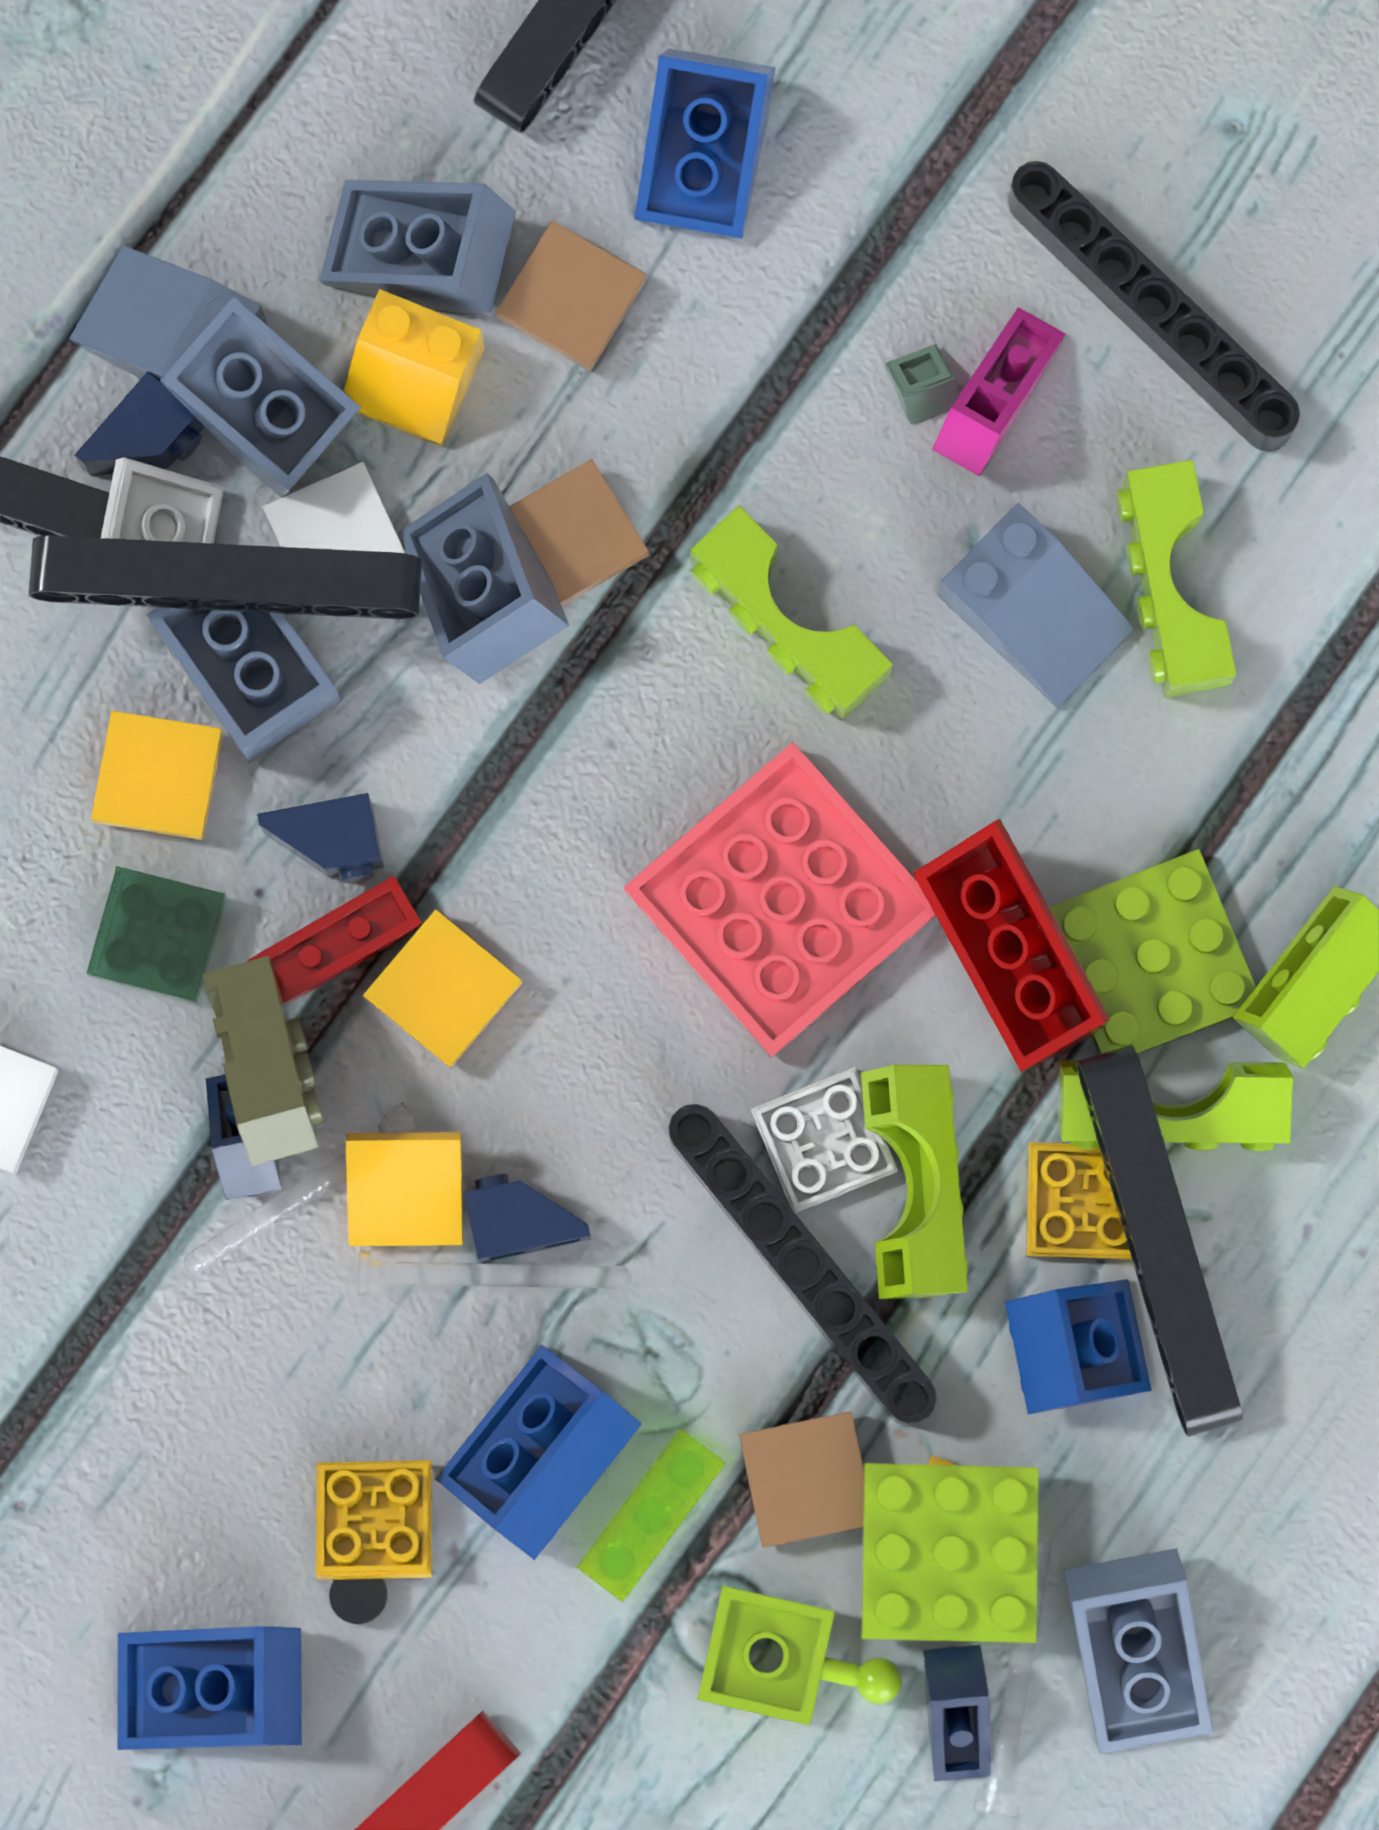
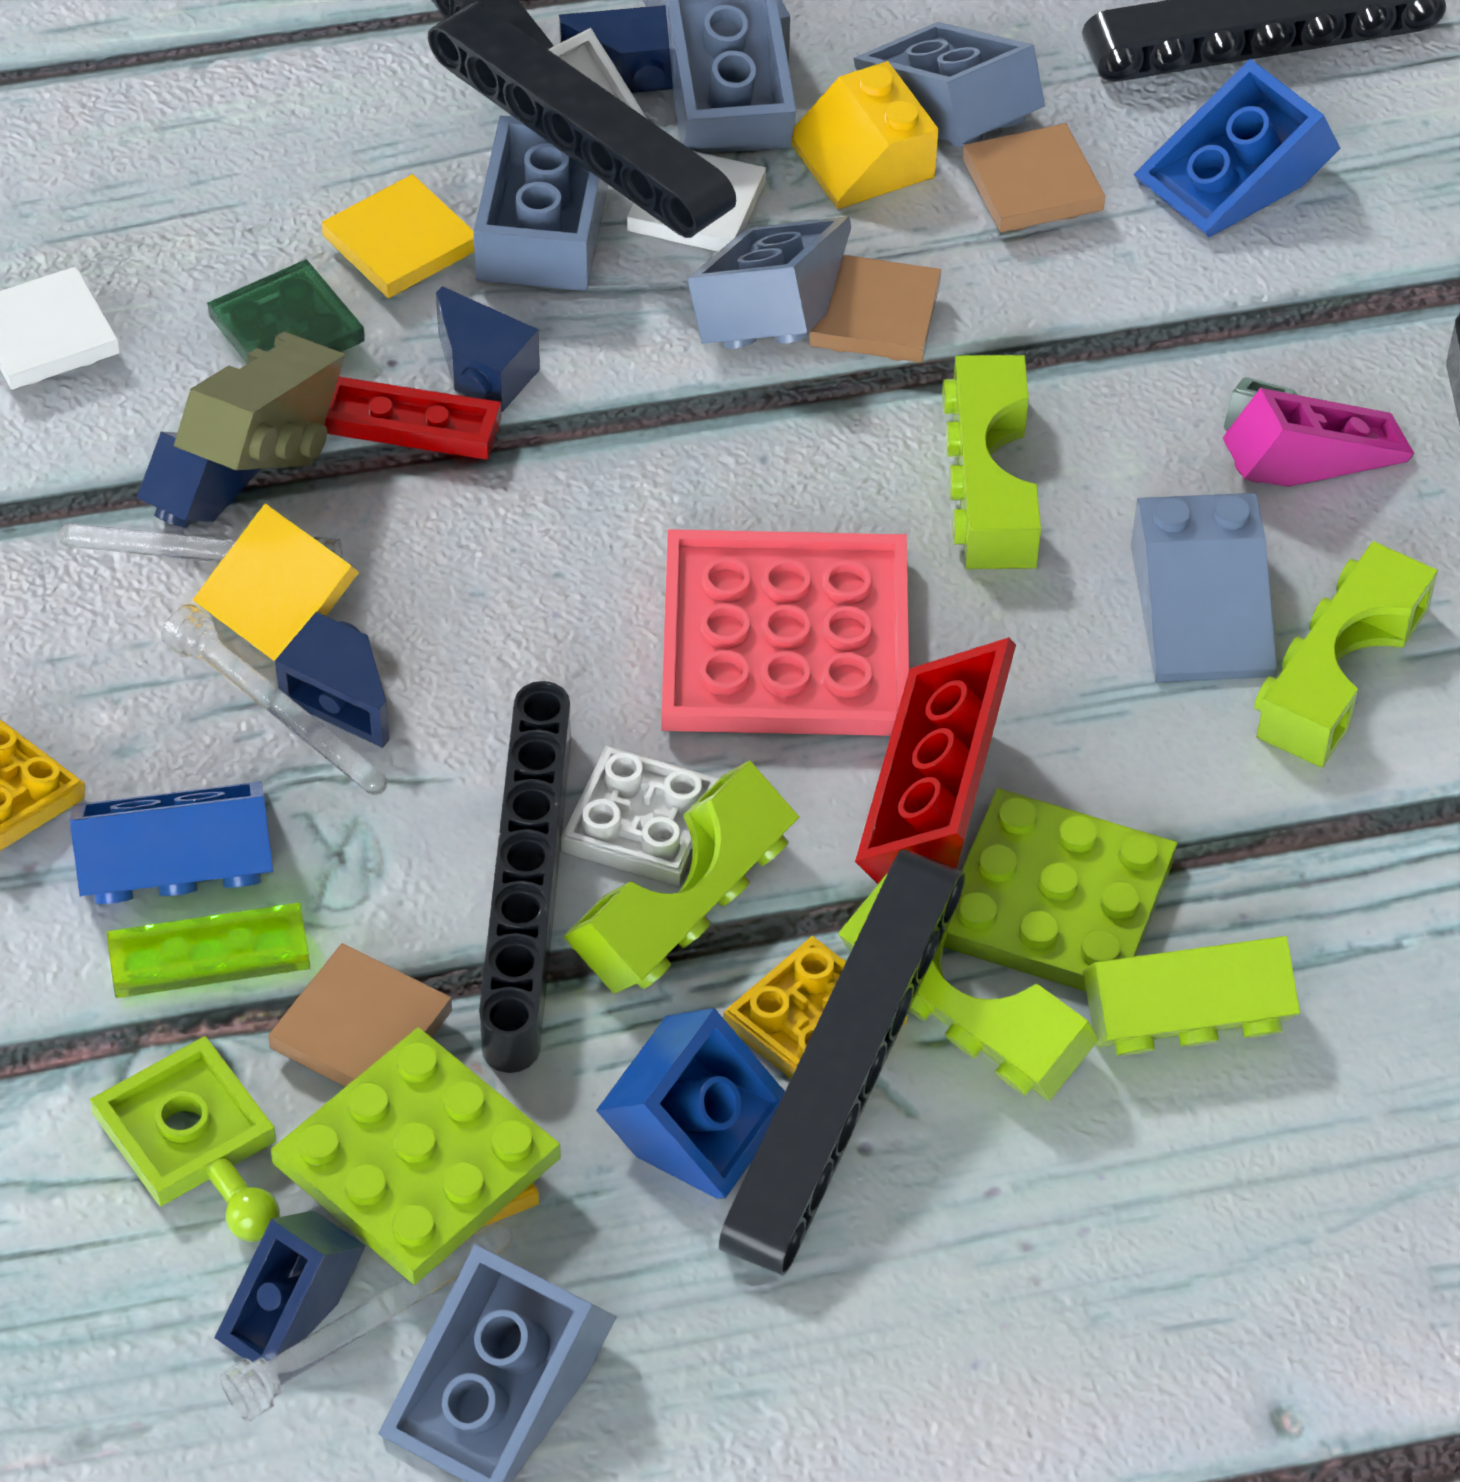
camera: 40 degrees right, 30 degrees down
(442, 989) = (455, 499): yellow tile -> none

